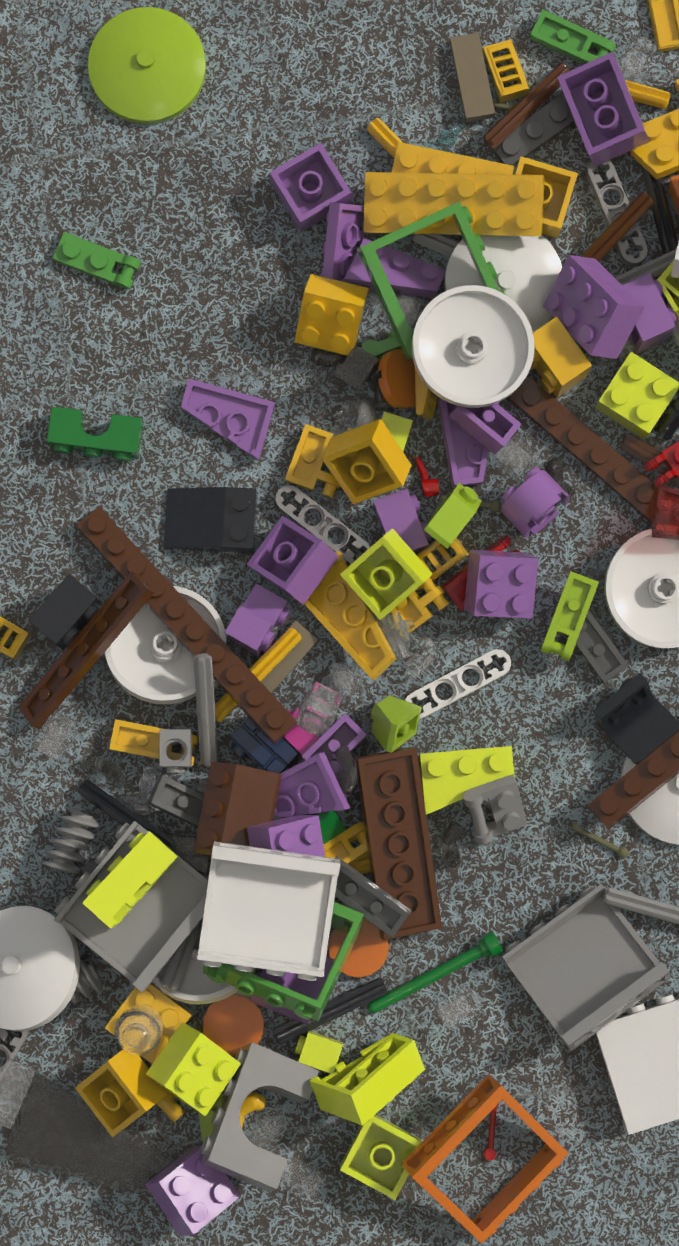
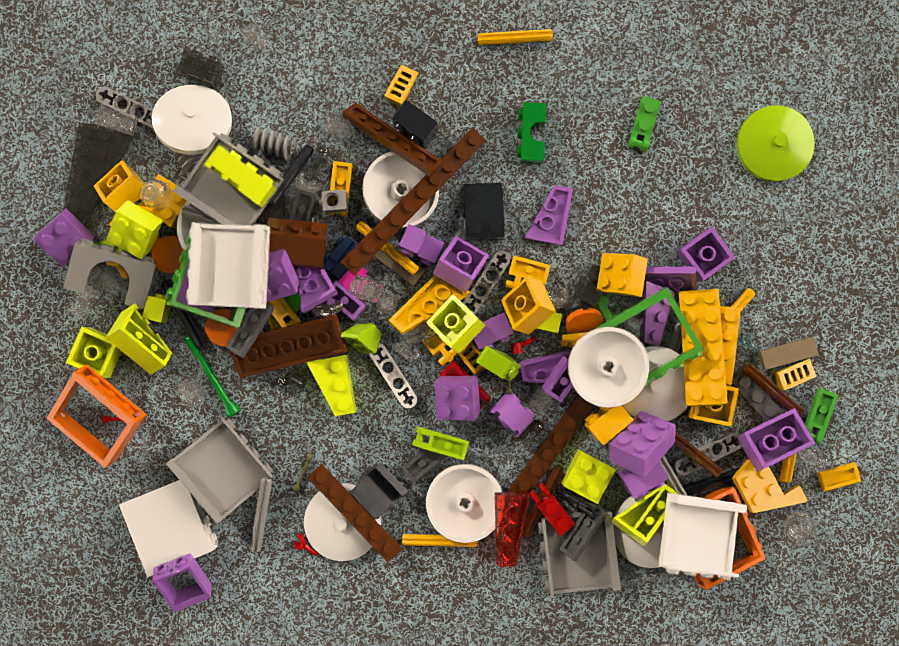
camera: 85 degrees right, 5 degrees up
(205, 709) = (361, 217): light grey axle -> none
(504, 805) = (318, 411): light grey plate -> none

